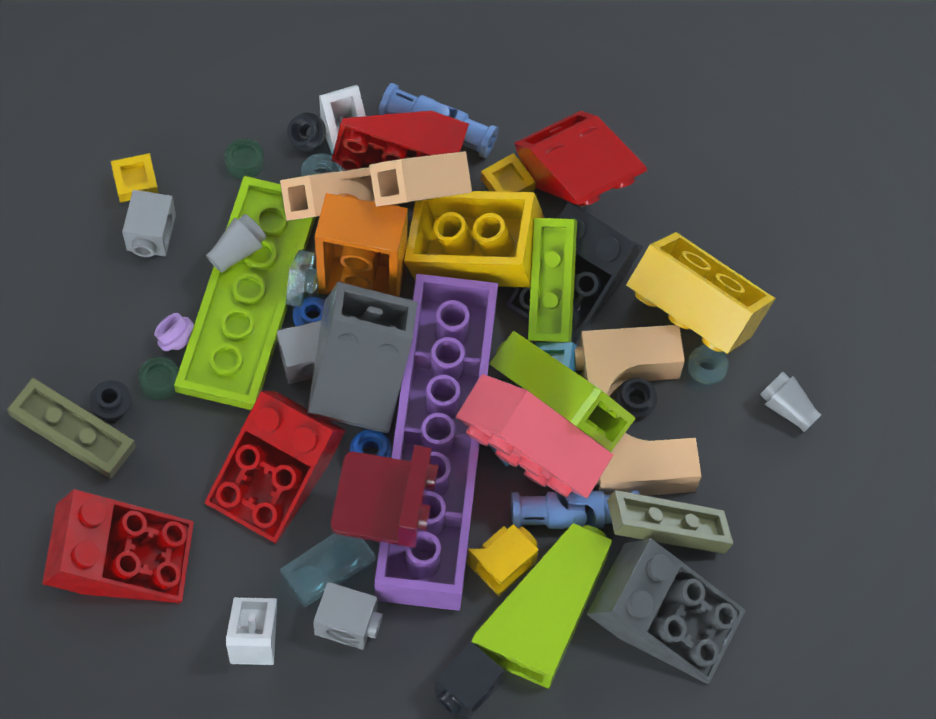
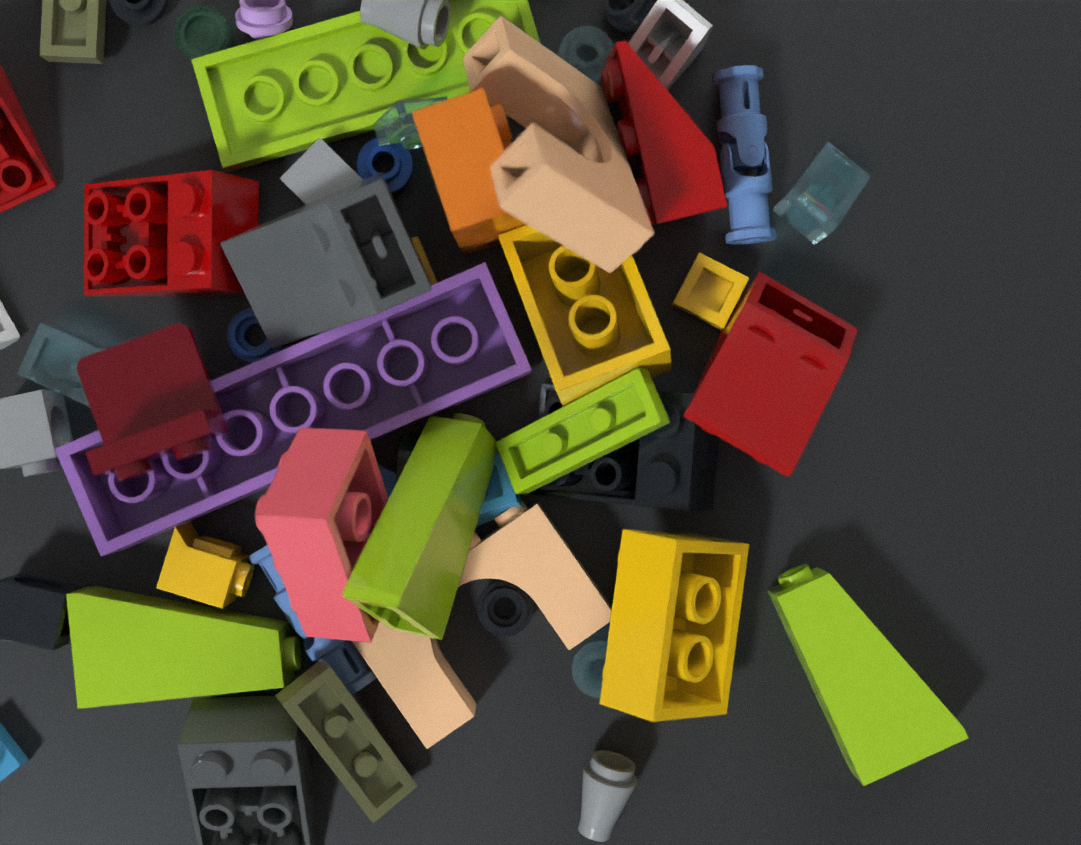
camera: 65 degrees right, 25 degrees up
(489, 95) = (822, 194): none -> clear light blue slope
(792, 221) = (864, 686): none -> lime slope

